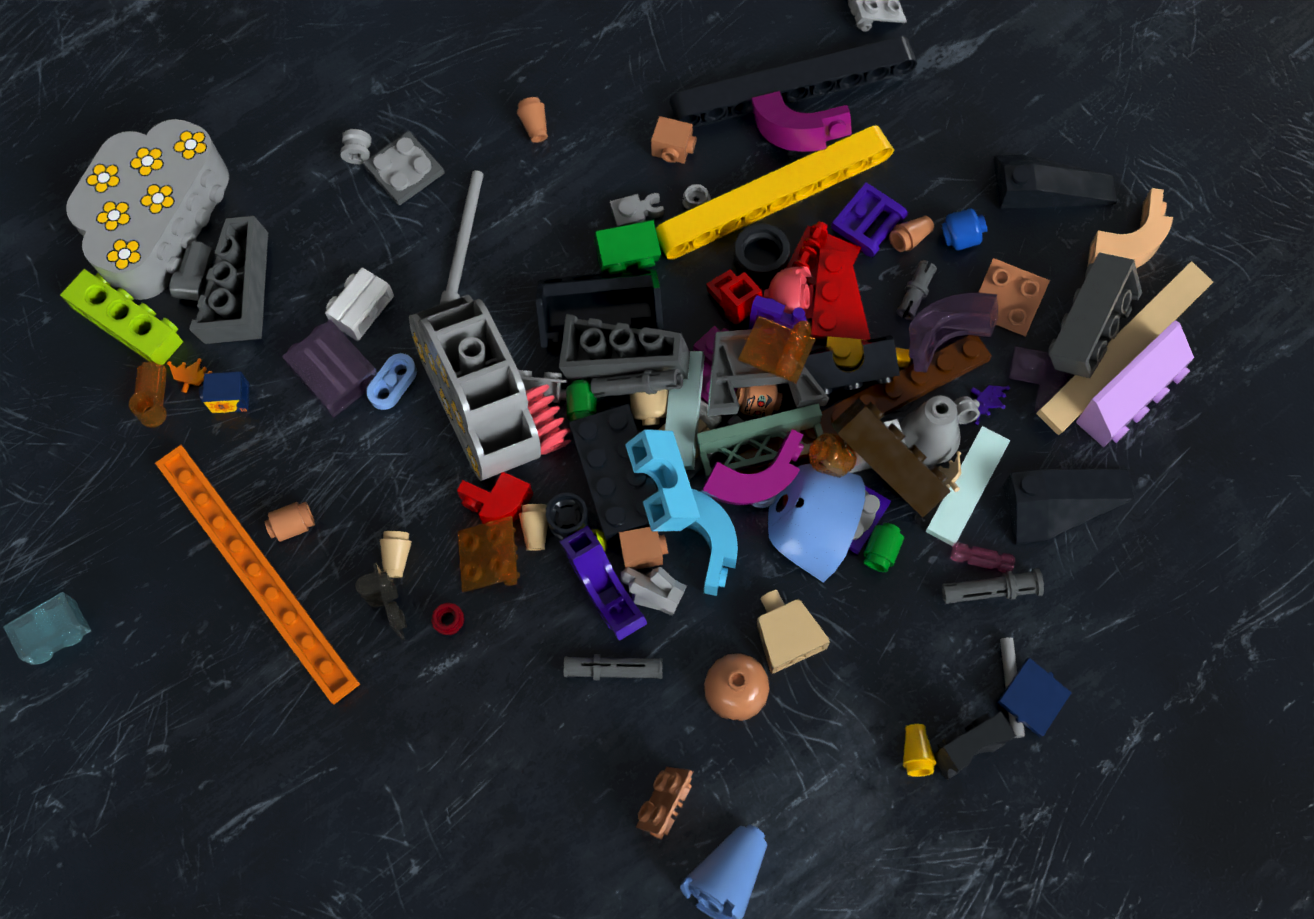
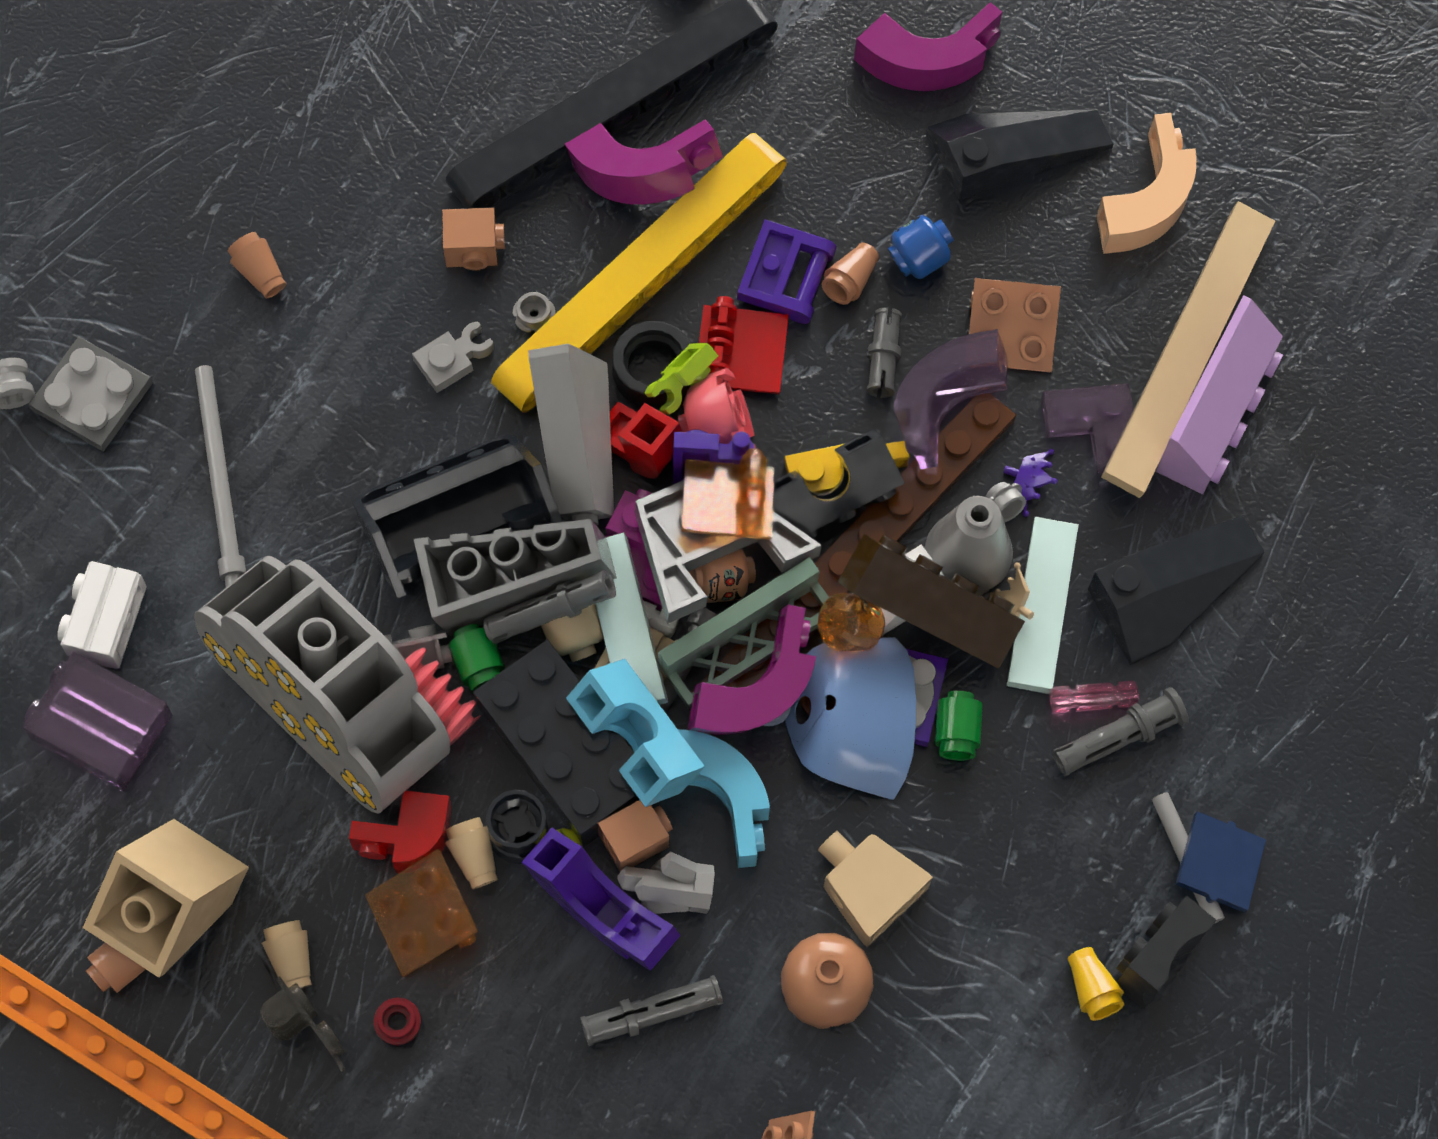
camera: 25 degrees left, 0 degrees up
(327, 488) = (163, 895): none -> tan slope
(389, 382) = (192, 714): light blue plate -> none
(627, 247) = (463, 414): green brick -> none
(694, 275) = (575, 429): none -> light grey slope
(780, 259) = (684, 370): none -> lime plate
(837, 299) = (780, 398): red wing -> none
(1007, 114) = (927, 63): none -> magenta arch
(1095, 314) = (1136, 318): dark grey wedge -> none

